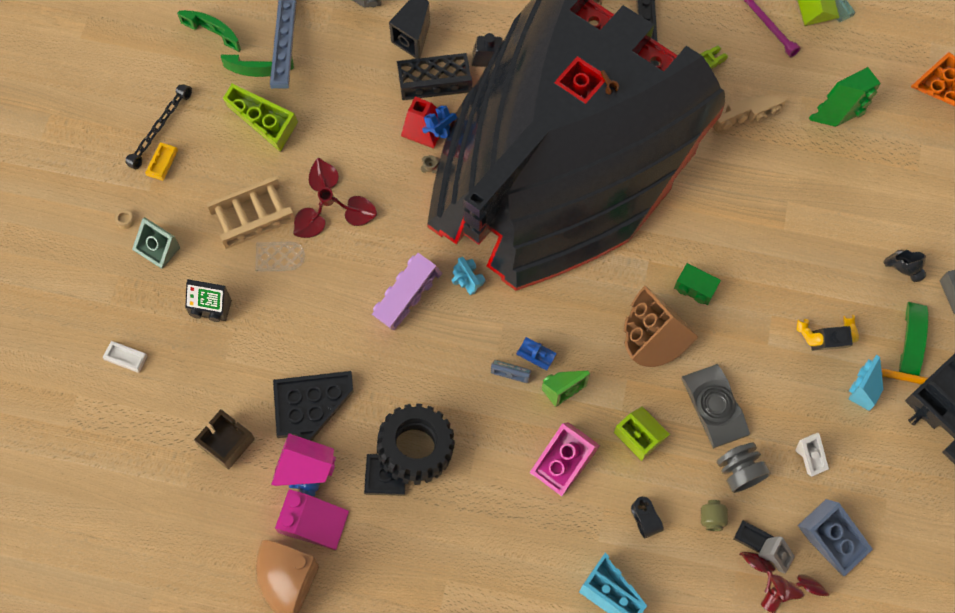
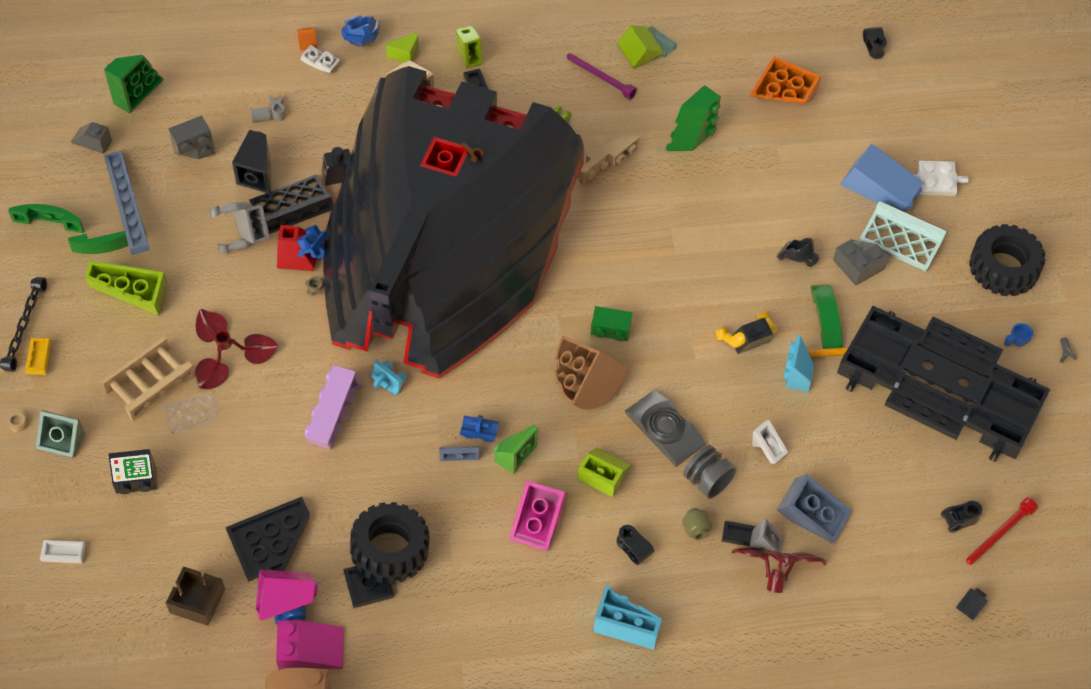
camera: 20 degrees left, 10 degrees down
(388, 86) = (250, 224): none -> light grey torso

